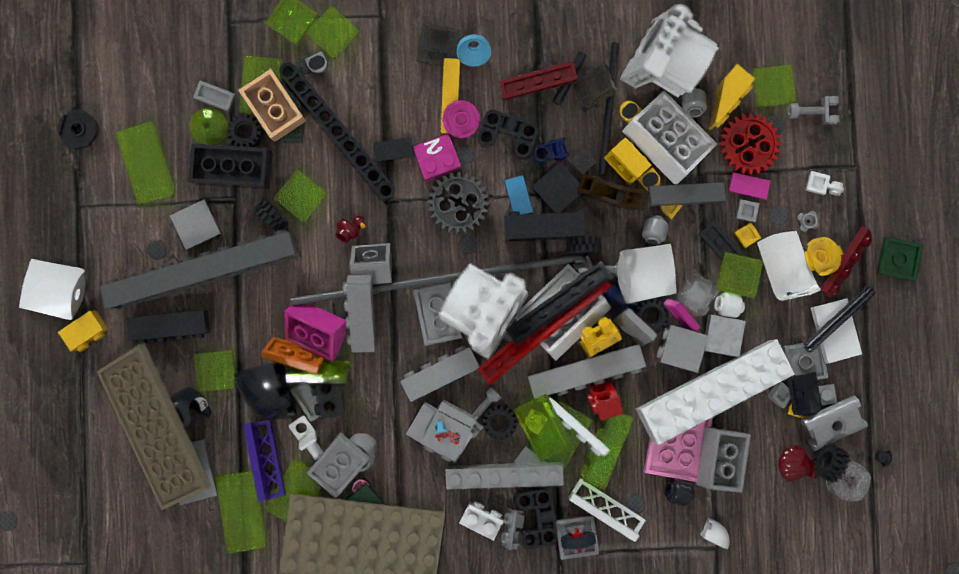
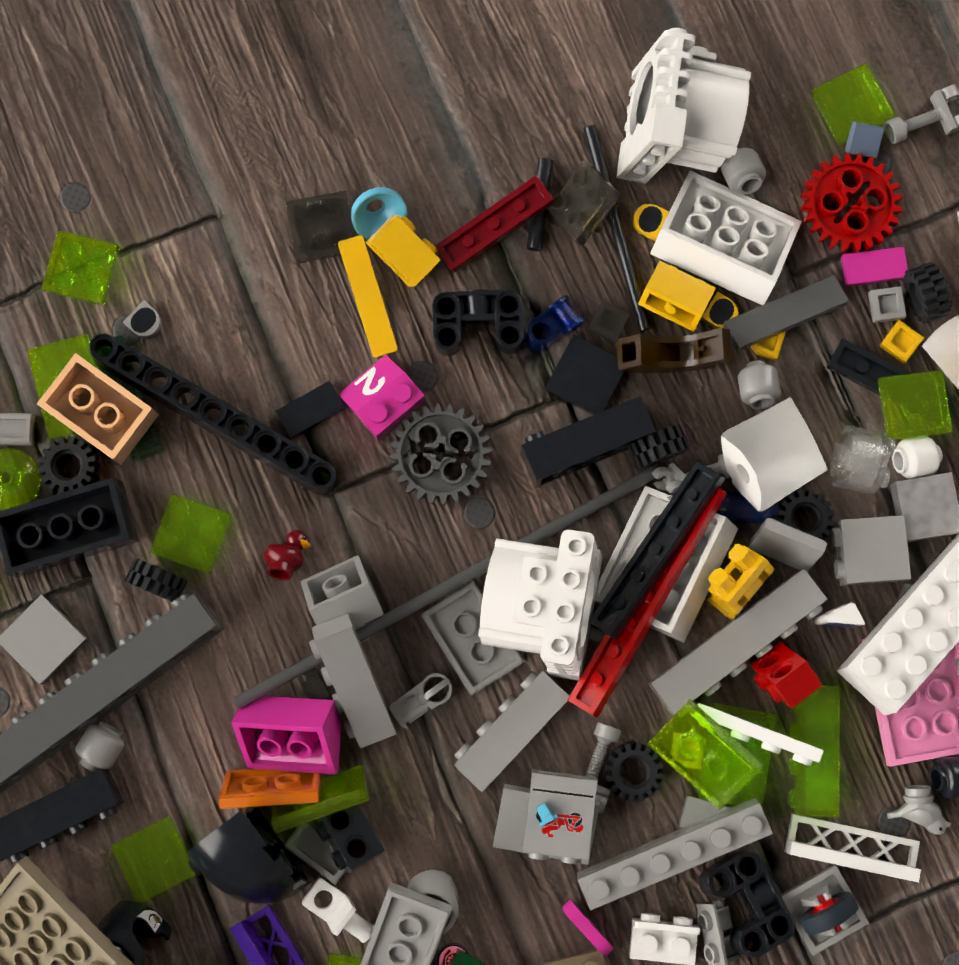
camera: 25 degrees left, 5 degrees down
(207, 297) = (99, 746): none -> light grey head
(332, 32) = (151, 265): clear neon green tile -> none
(393, 337) = (415, 702): none -> light grey piece
(441, 497) = (590, 931): none -> dark pink tile
(461, 119) = (397, 325): dark pink tile -> none
(480, 77) = (404, 250): none -> yellow brick
(518, 195) = (529, 408): dark azure tile -> none
(651, 379) = (841, 616): none -> white slope
(653, 503) = (921, 809): none -> light grey animal
(681, 315) = (850, 499): dark pink tile -> none
(727, 95) = (792, 140): yellow slope -> none
(772, 109) = (864, 139): none -> sand blue tile
(772, 213) = (927, 292): none -> black tyre

